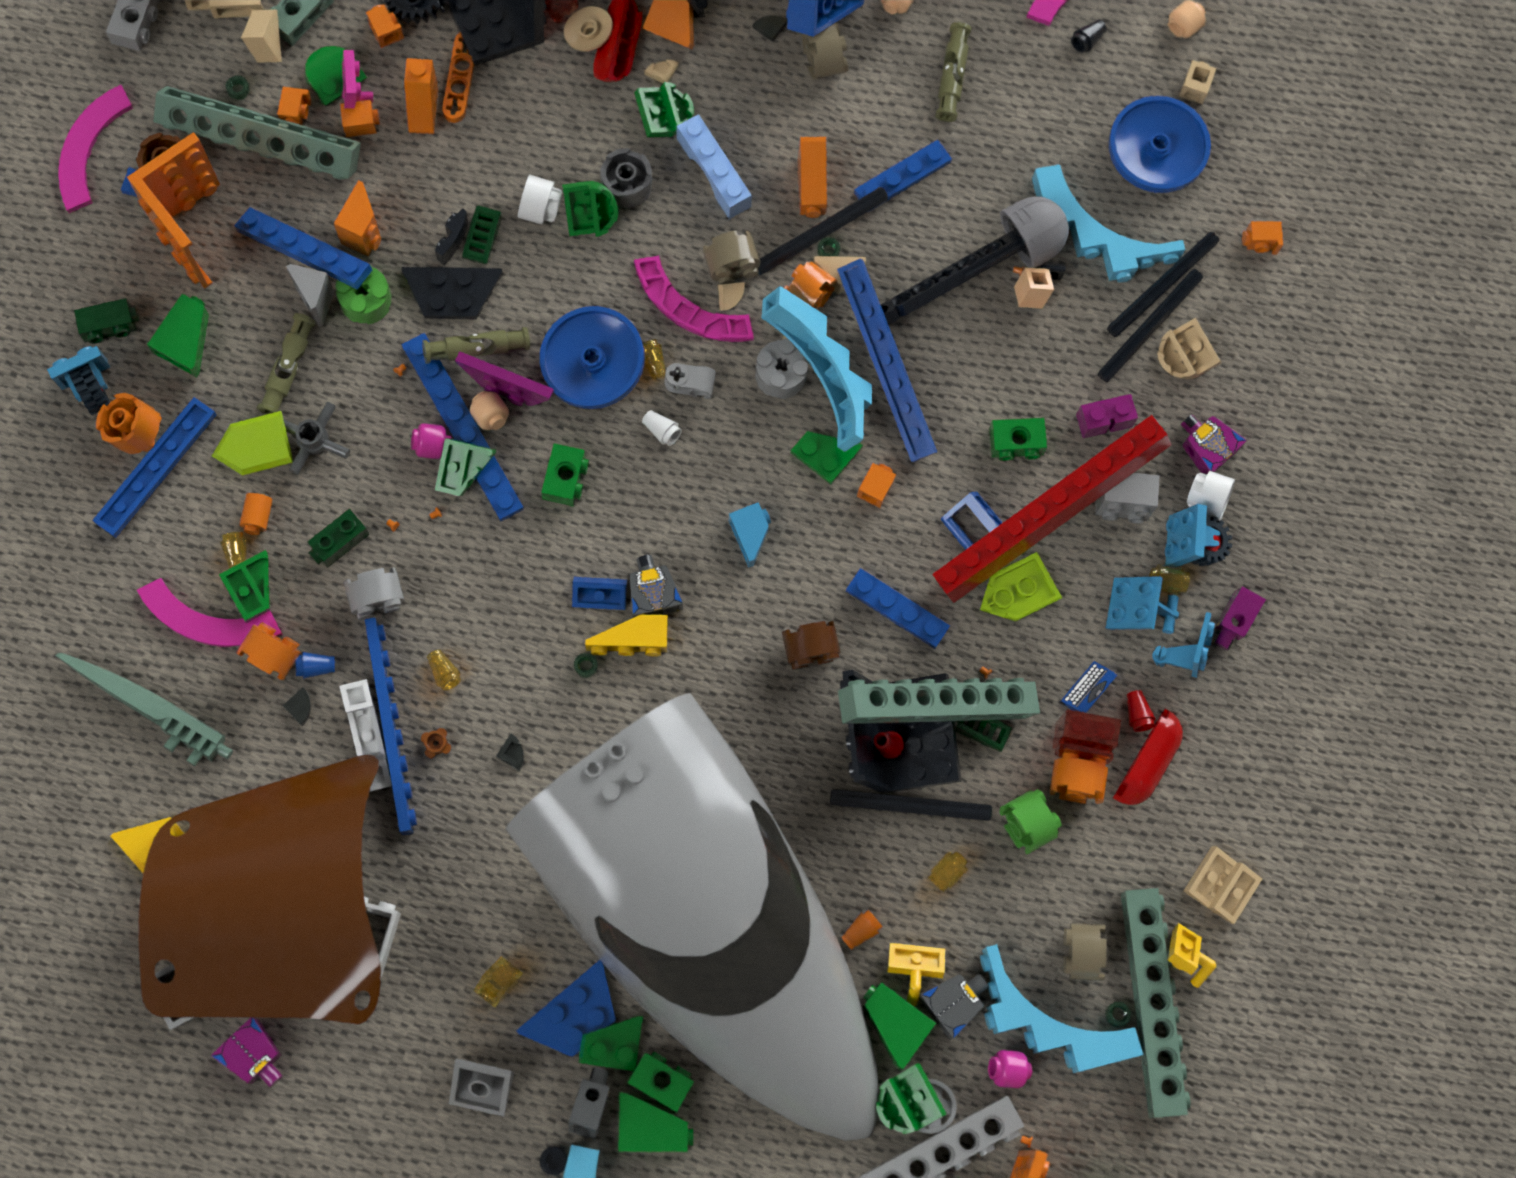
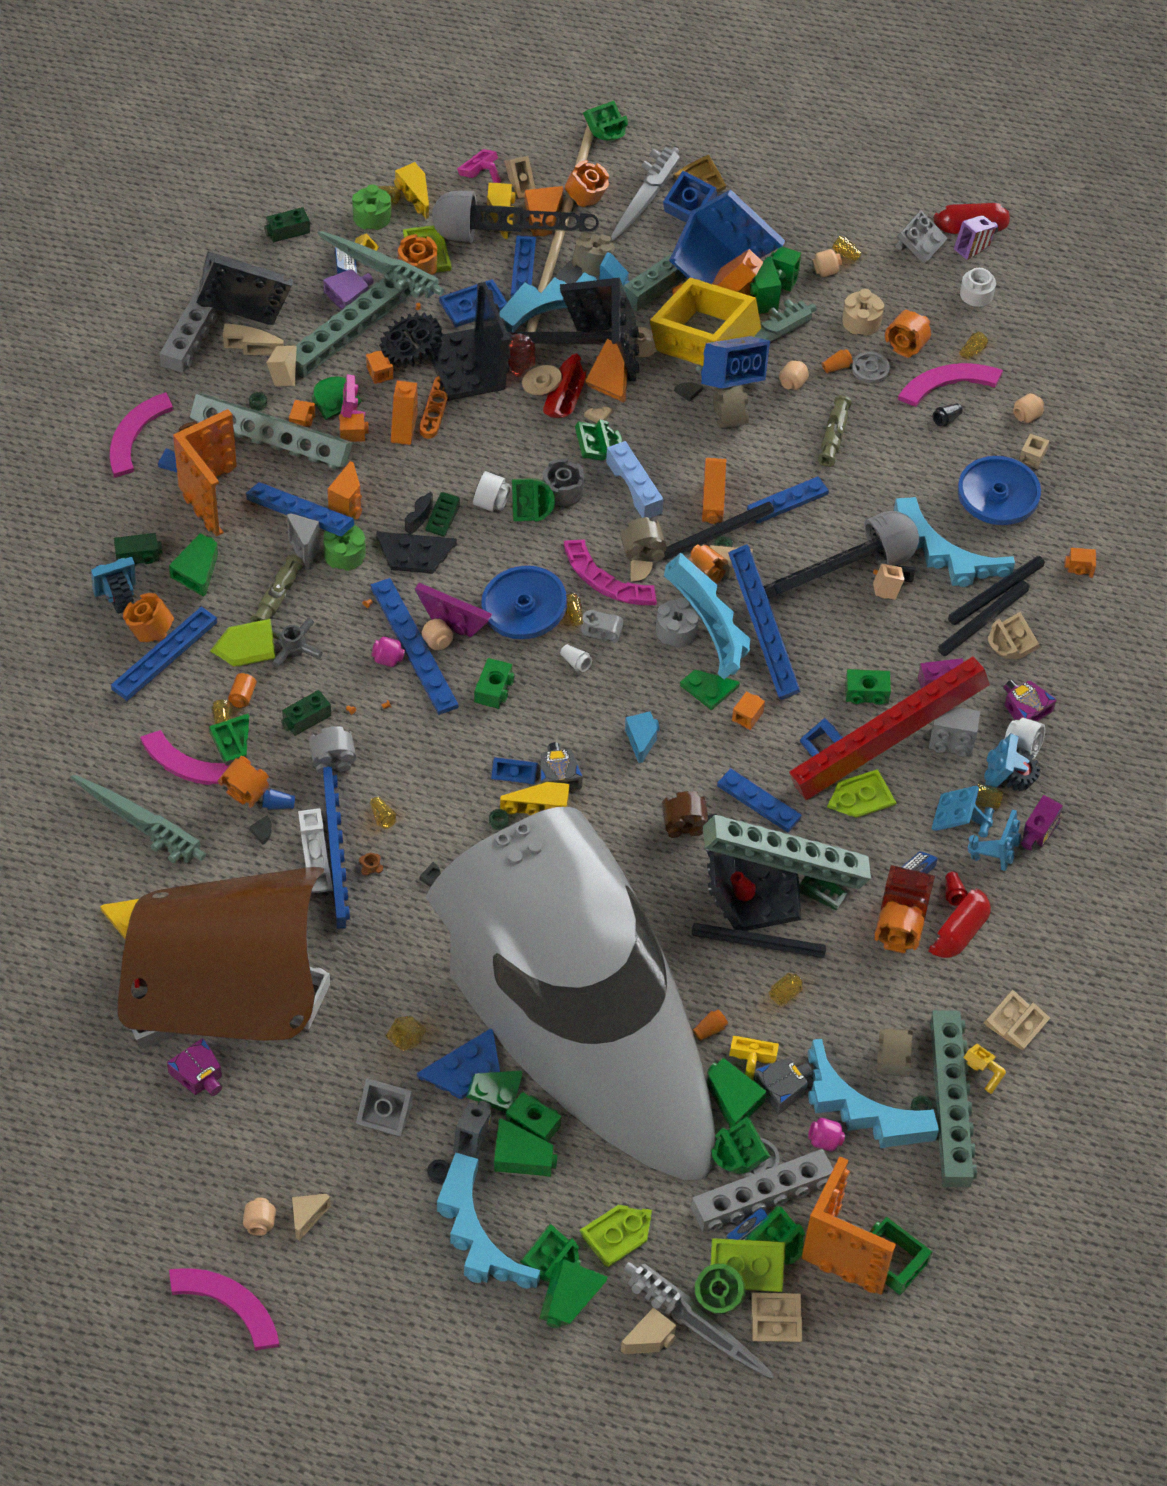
camera: 10 degrees right, 20 degrees down
(461, 465) = (411, 669): wing -> none
(473, 346) = (451, 586): olive piece -> none
(1030, 821) = (856, 954): bright green brick -> none

